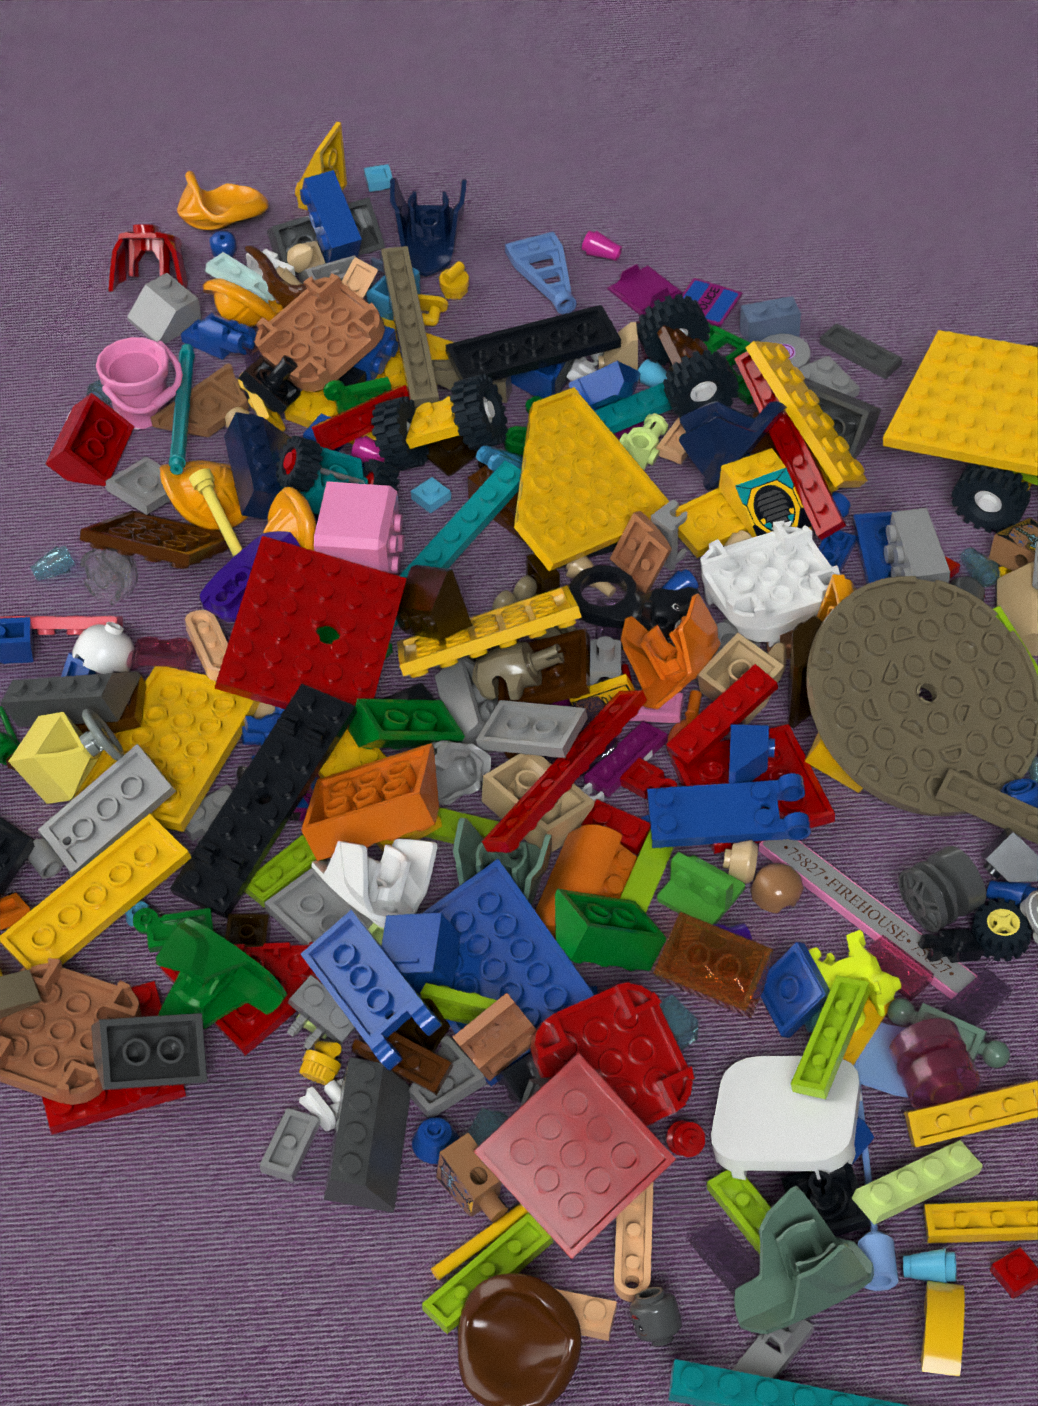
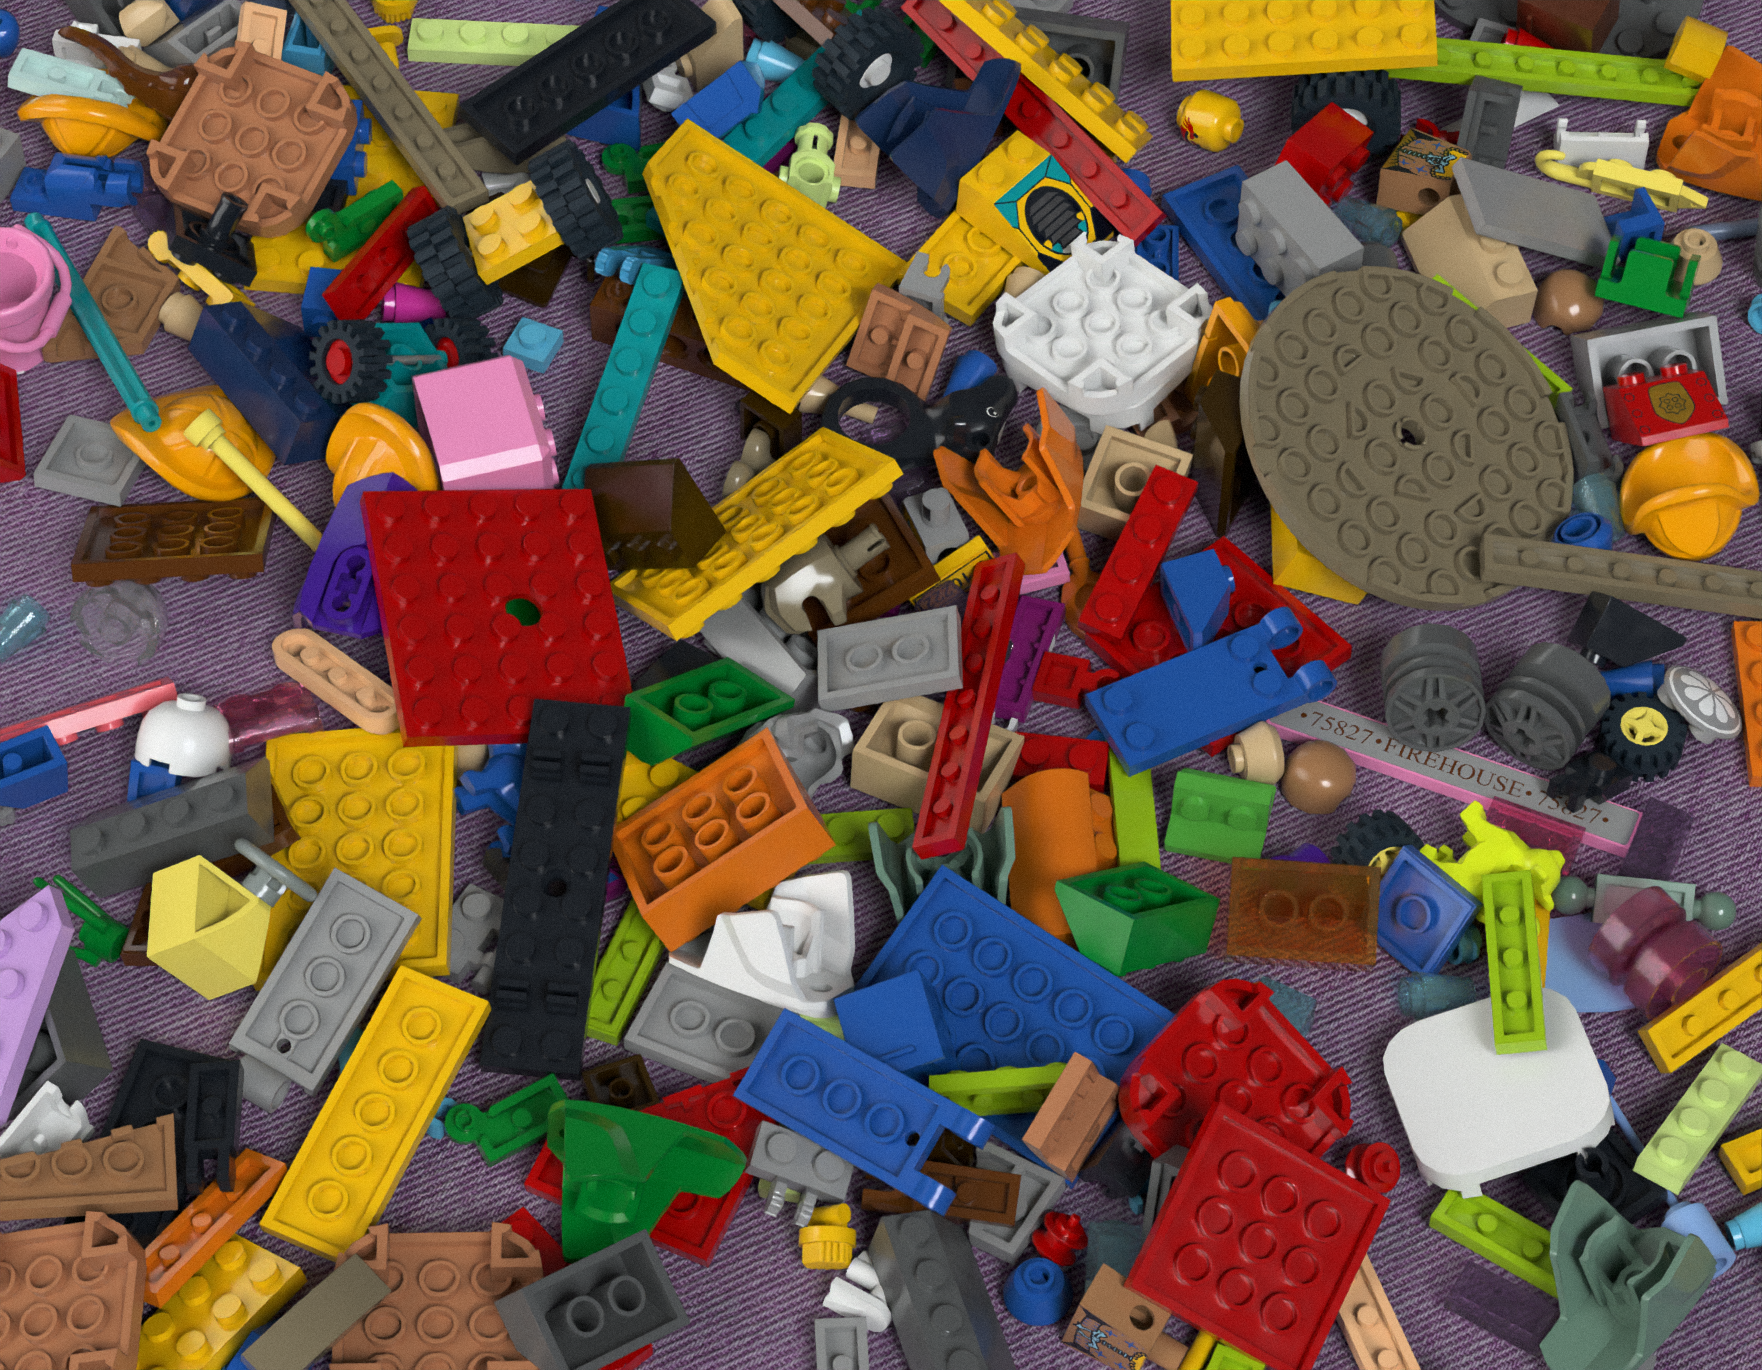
camera: 25 degrees left, 5 degrees up
(462, 1112) = (1062, 1235): none -> red wheel
(482, 318) = (480, 41): none -> yellowish green plate
(780, 1042) = (1432, 994): none -> clear light blue cone
(782, 931) = (1374, 841): none -> black wheel
(870, 853) = (1432, 687): none -> dark grey wheel
(906, 480) = (1210, 120): none -> yellow head
(961, 517) = (1328, 152): none -> red brick

